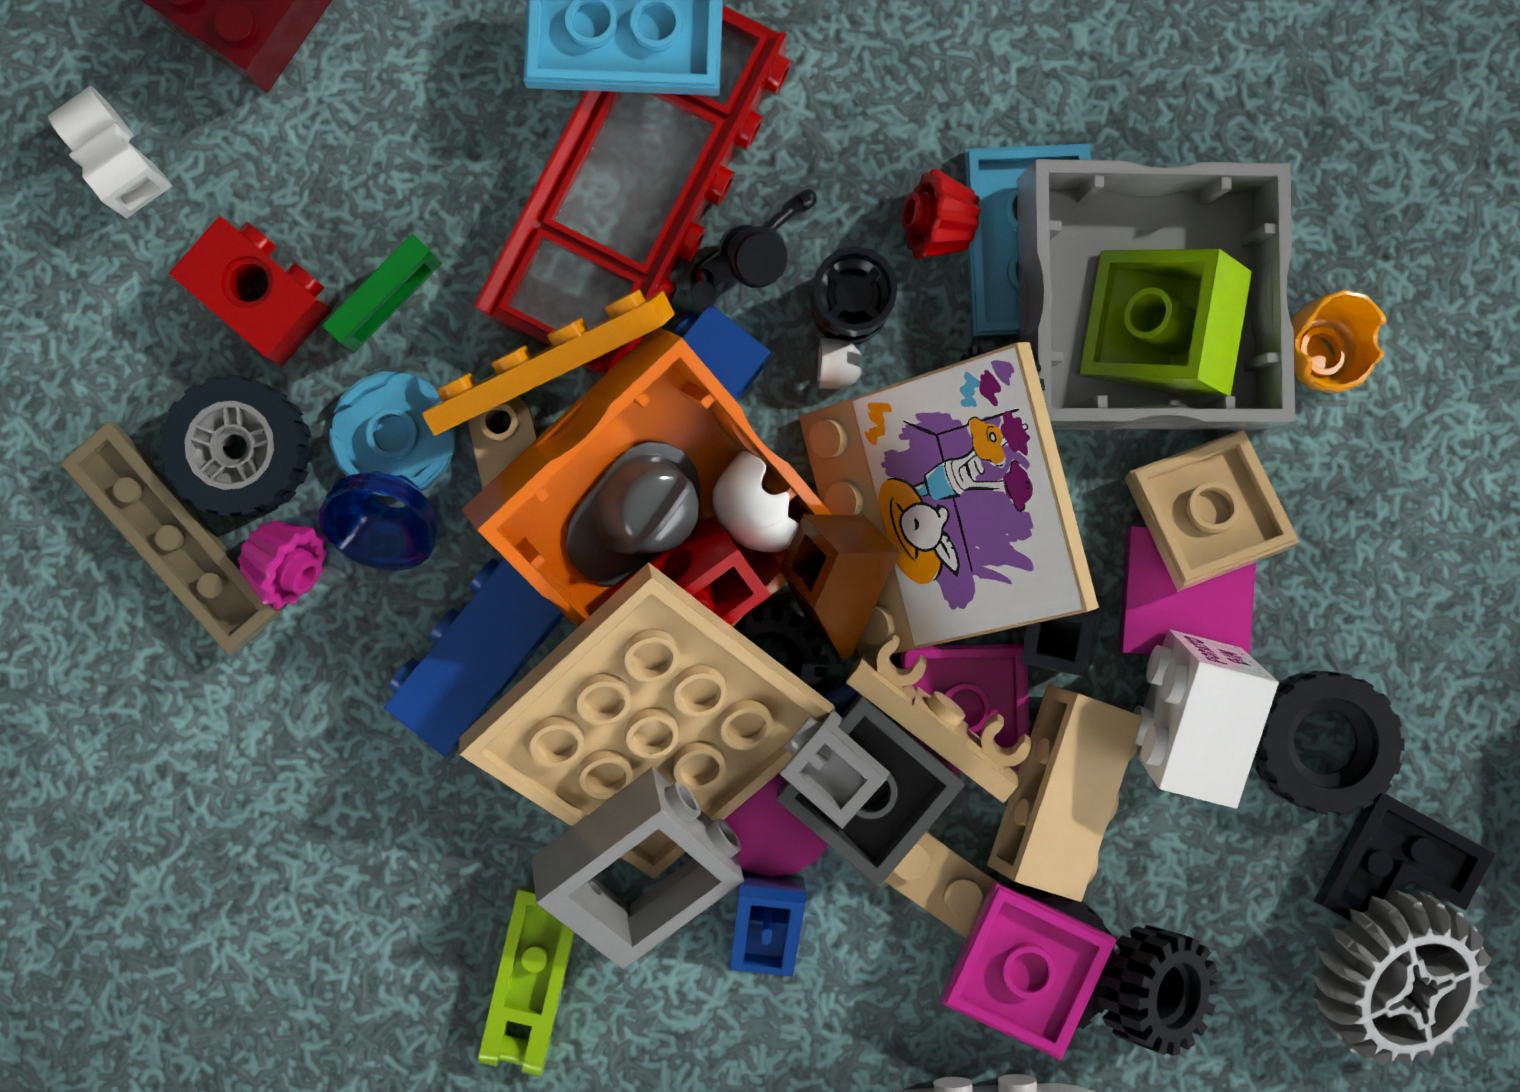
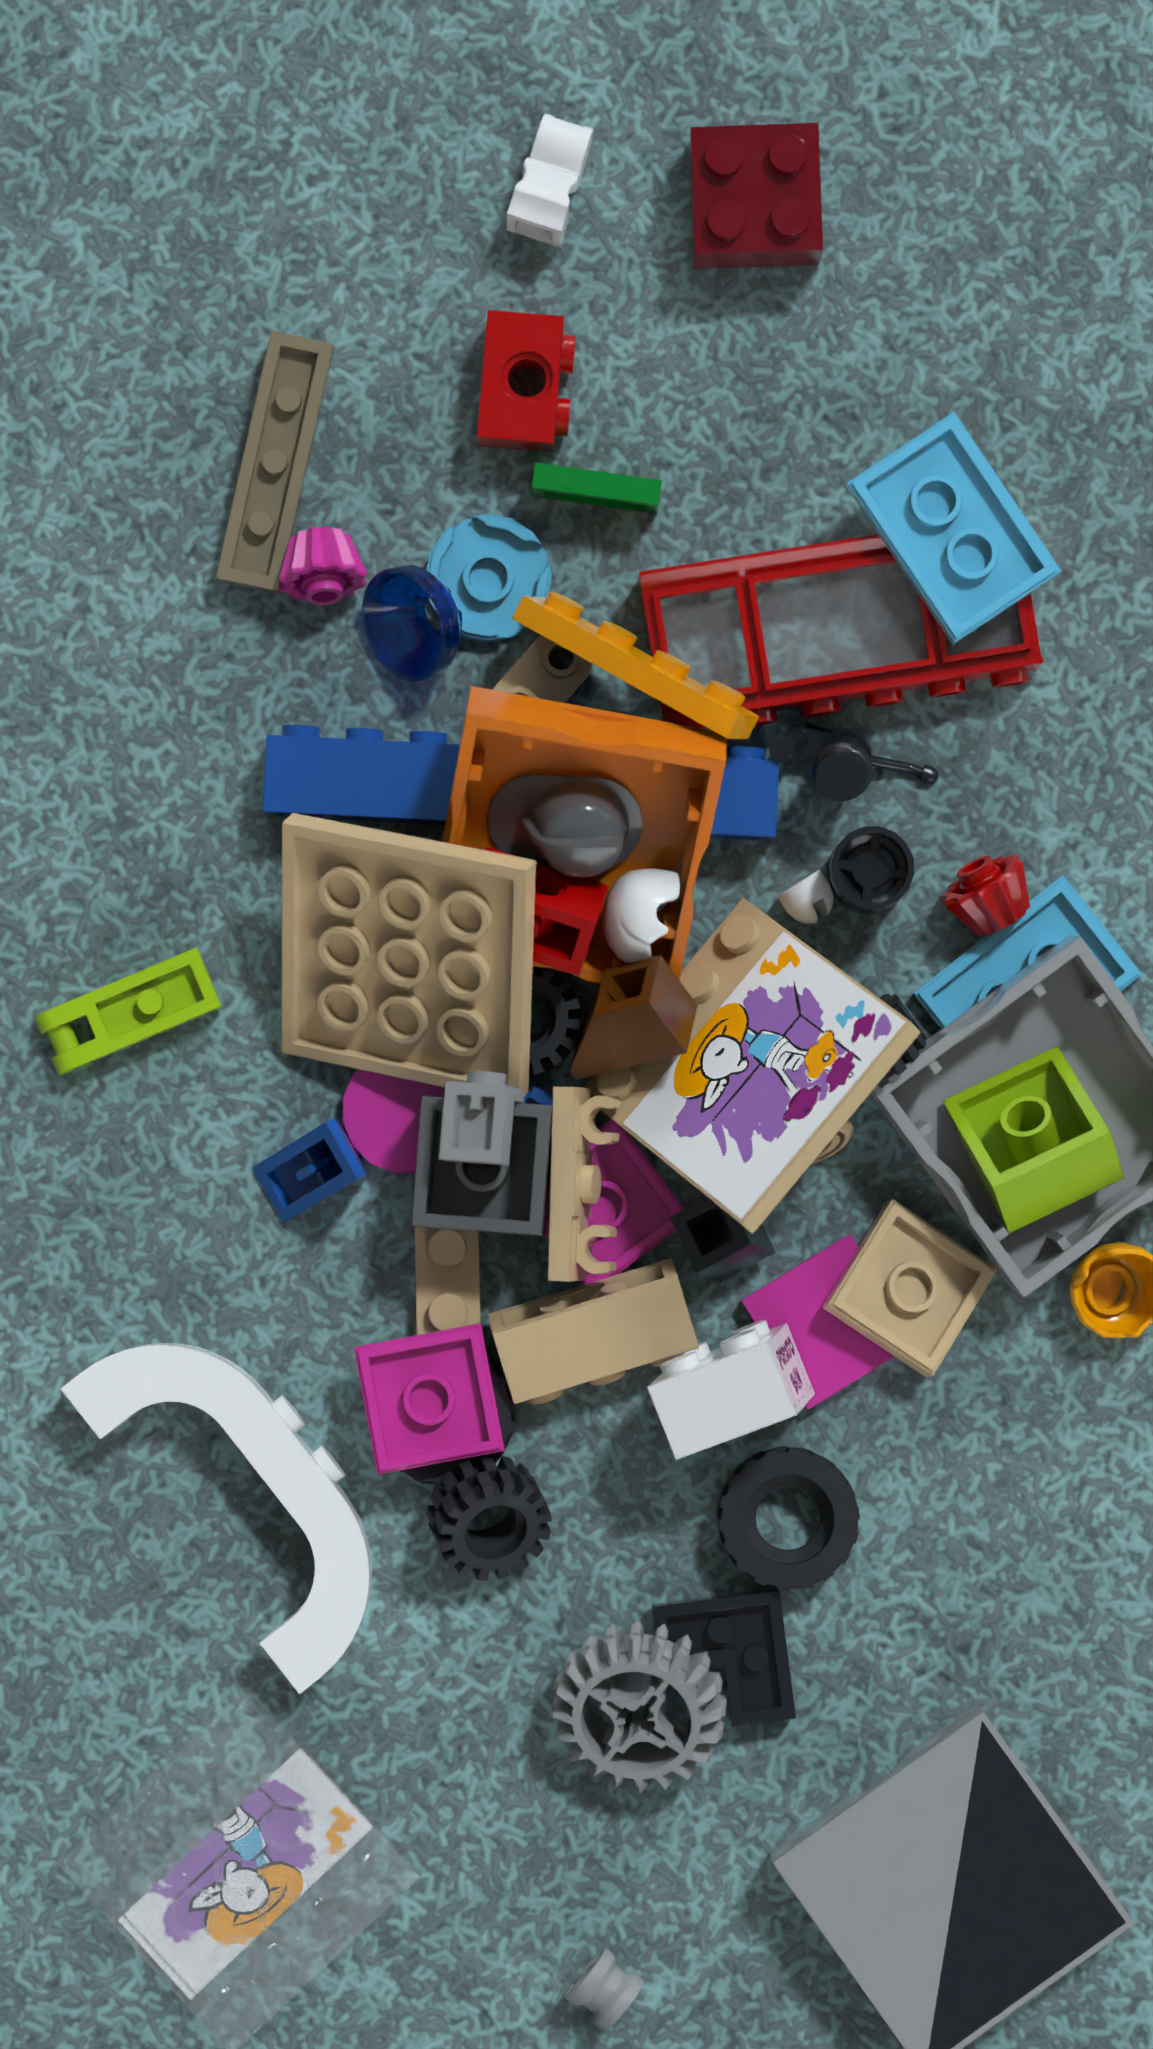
camera: 60 degrees right, 0 degrees up
(206, 425) = (383, 424): black wheel -> none
(623, 931) = (297, 982): light grey window -> none

